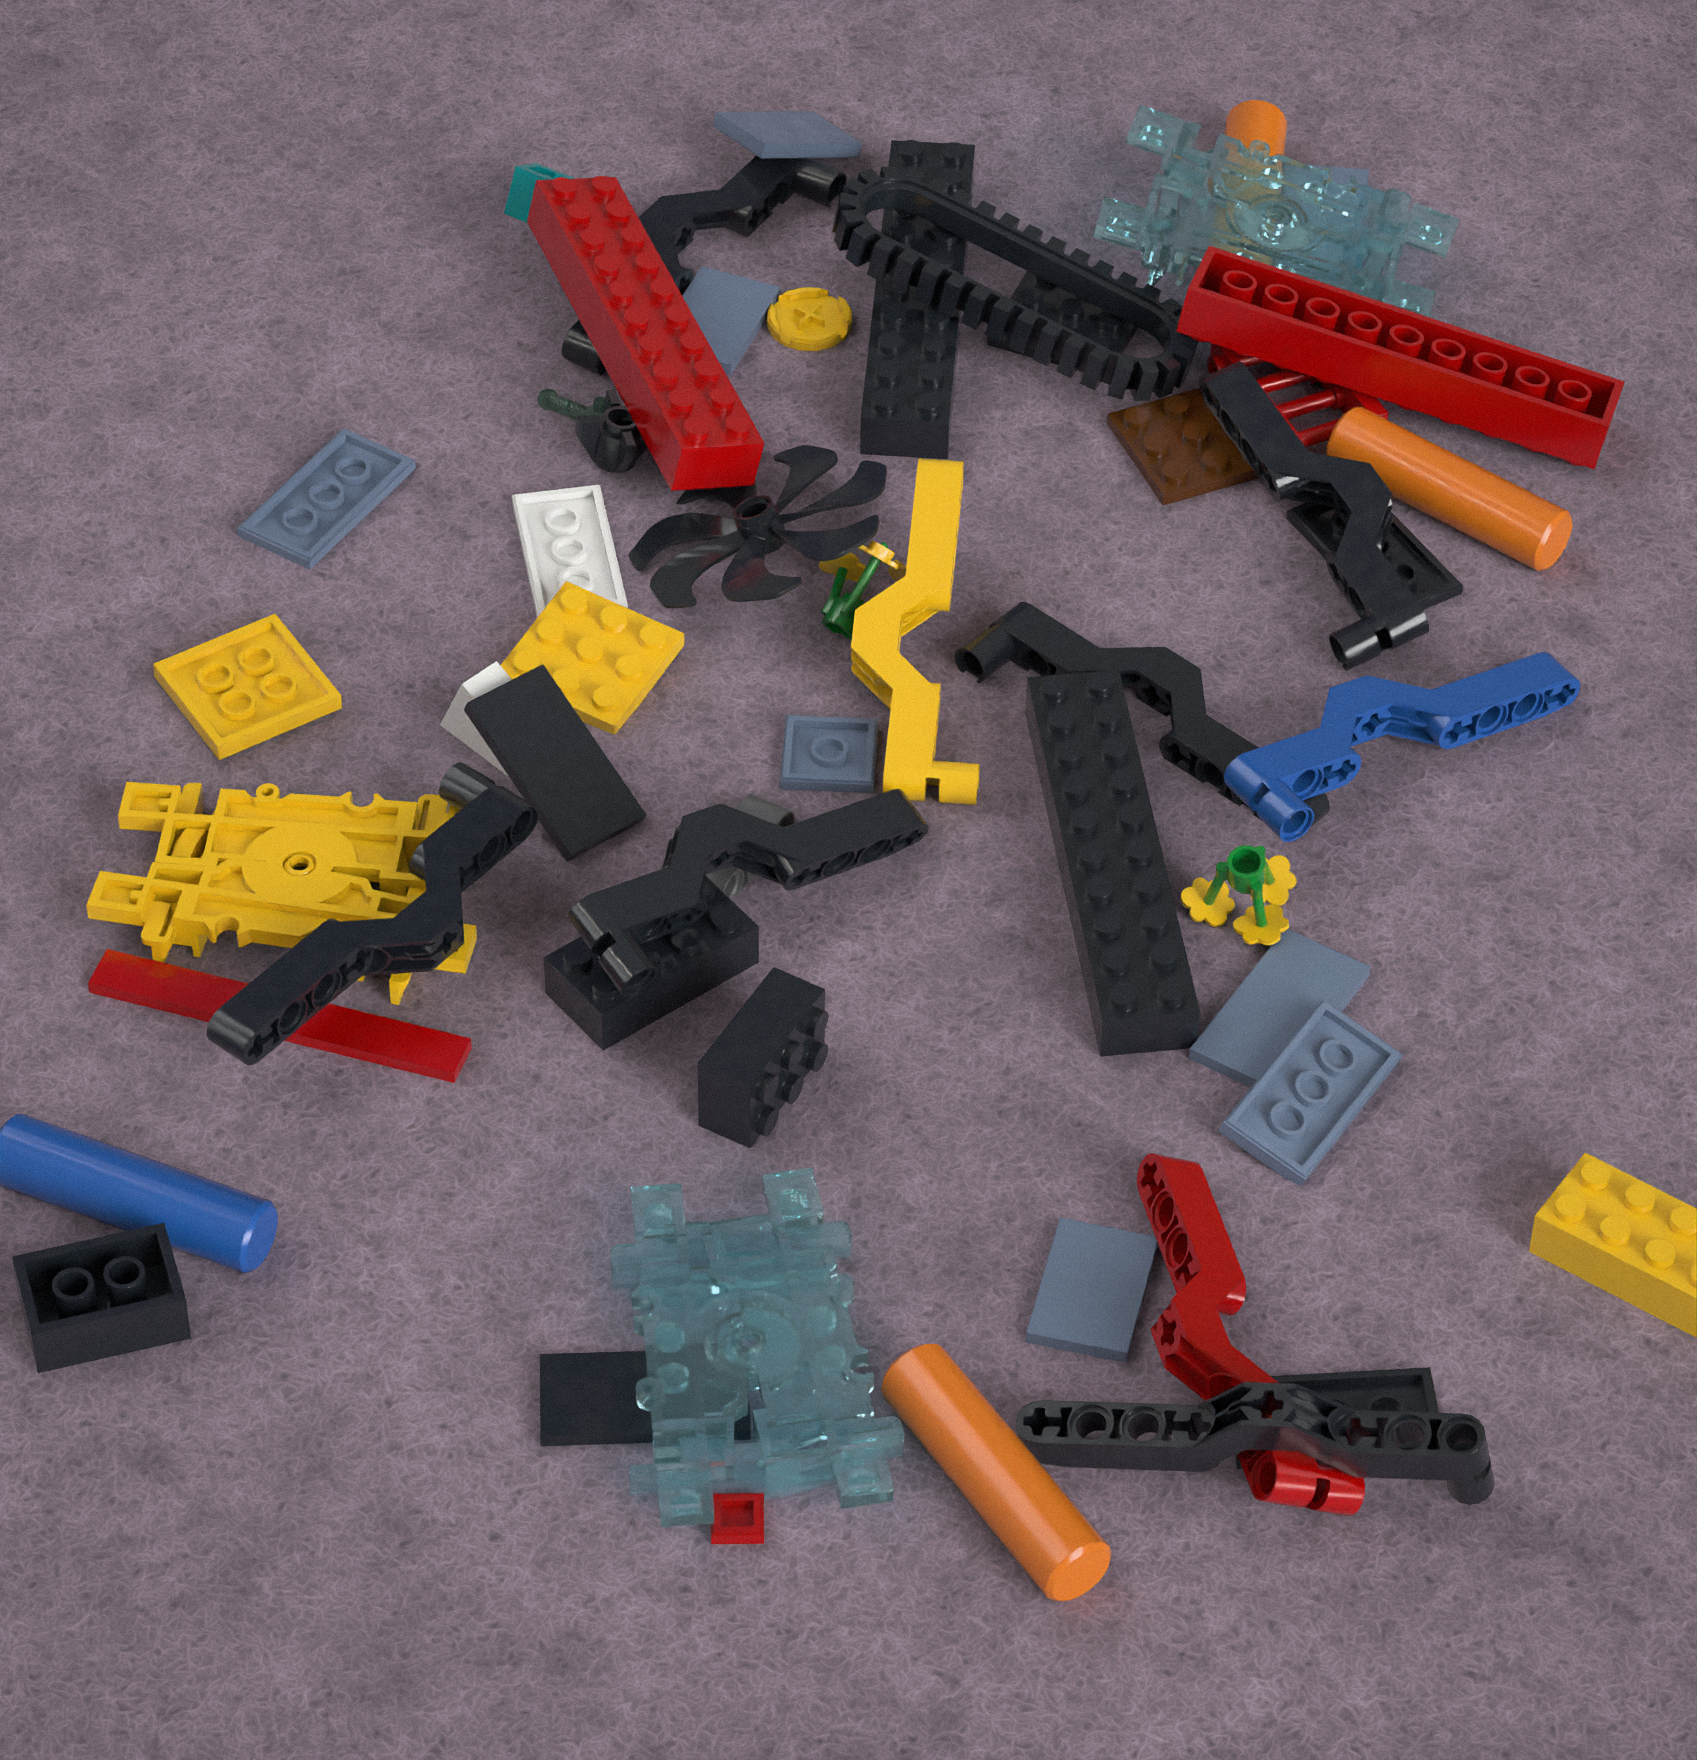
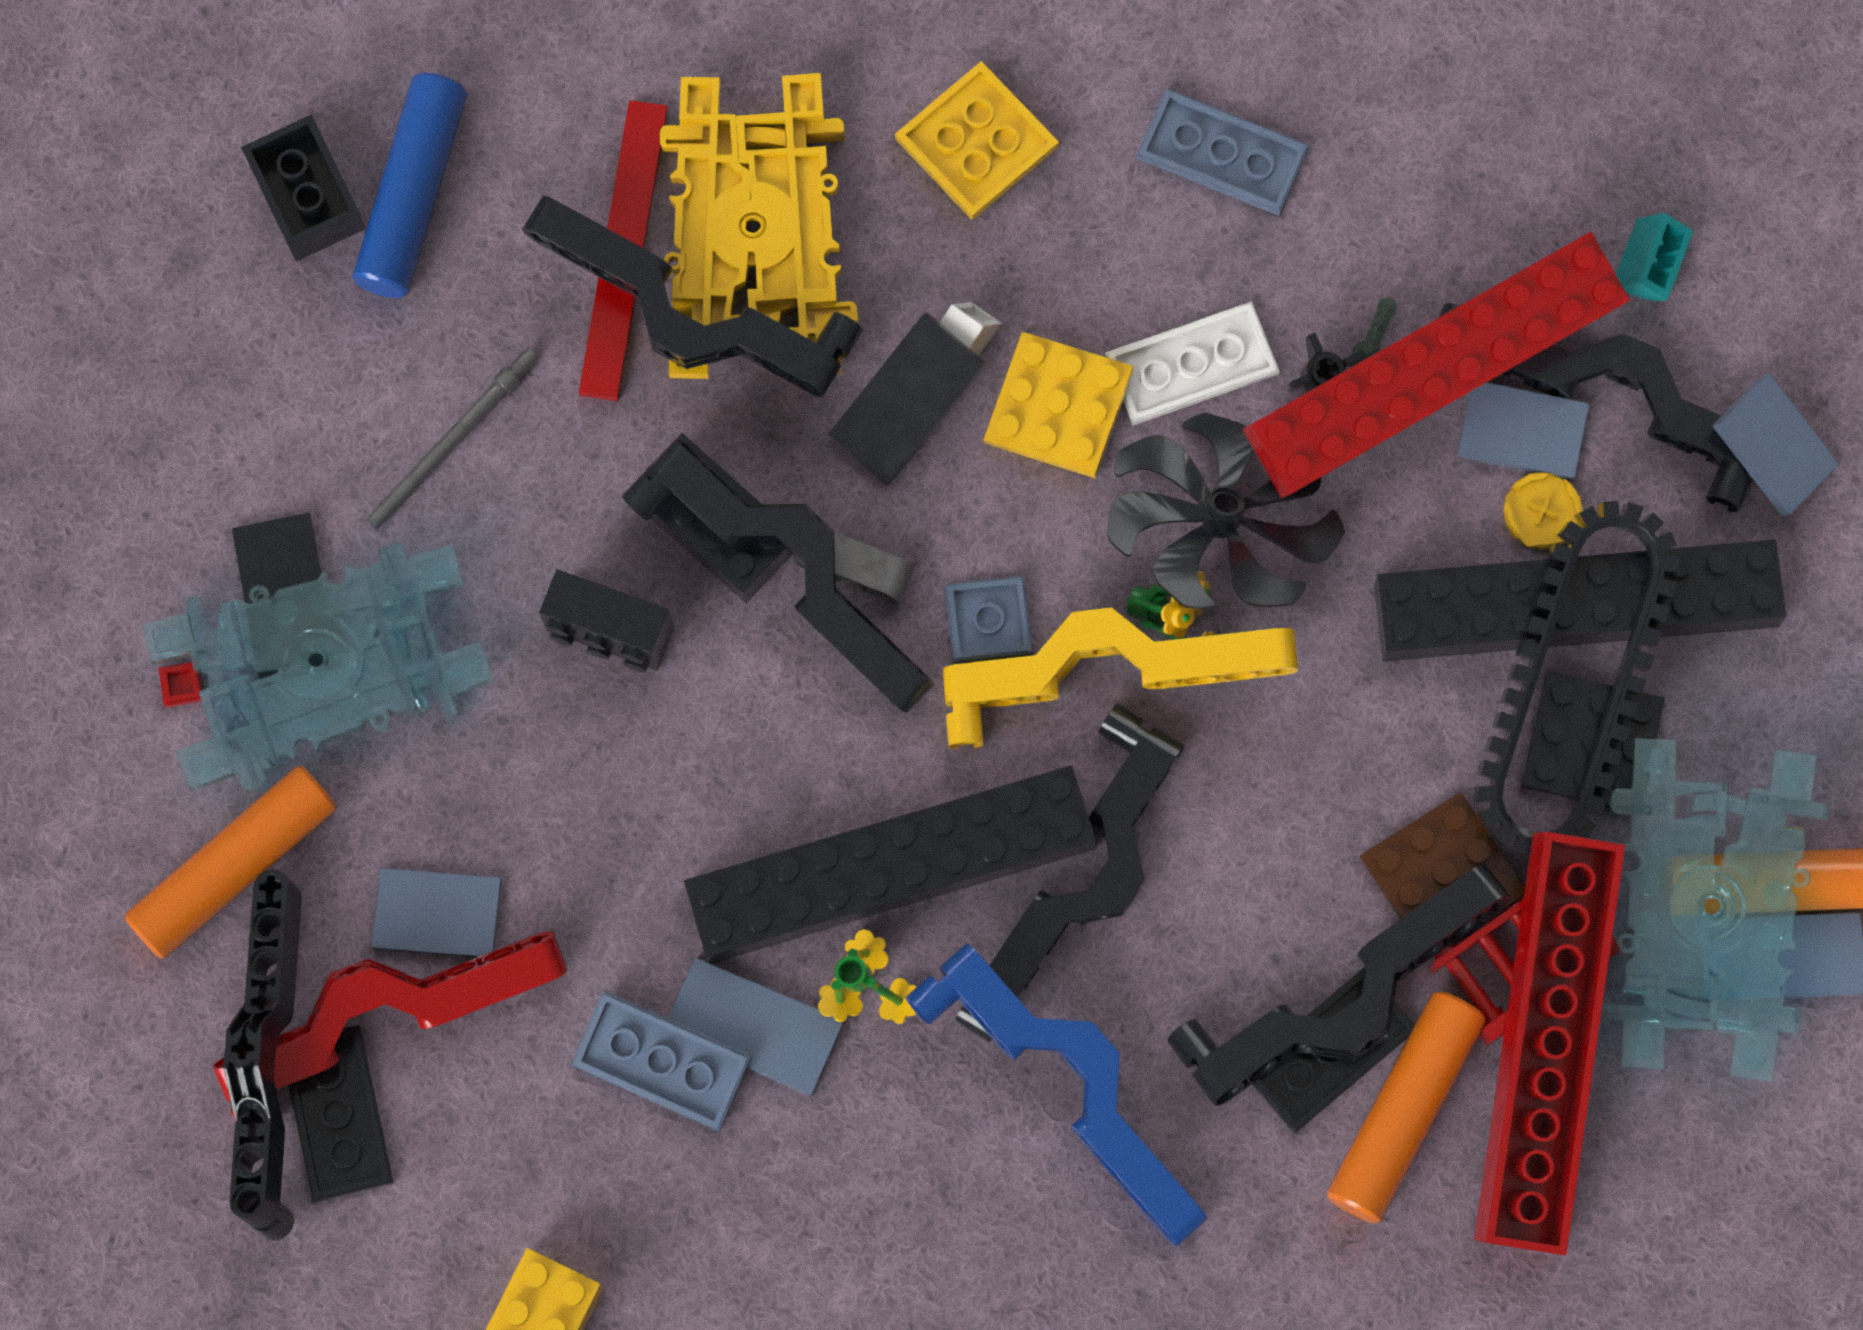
camera: 85 degrees right, 30 degrees up
(421, 1145) = (504, 382): none -> flat silver bar

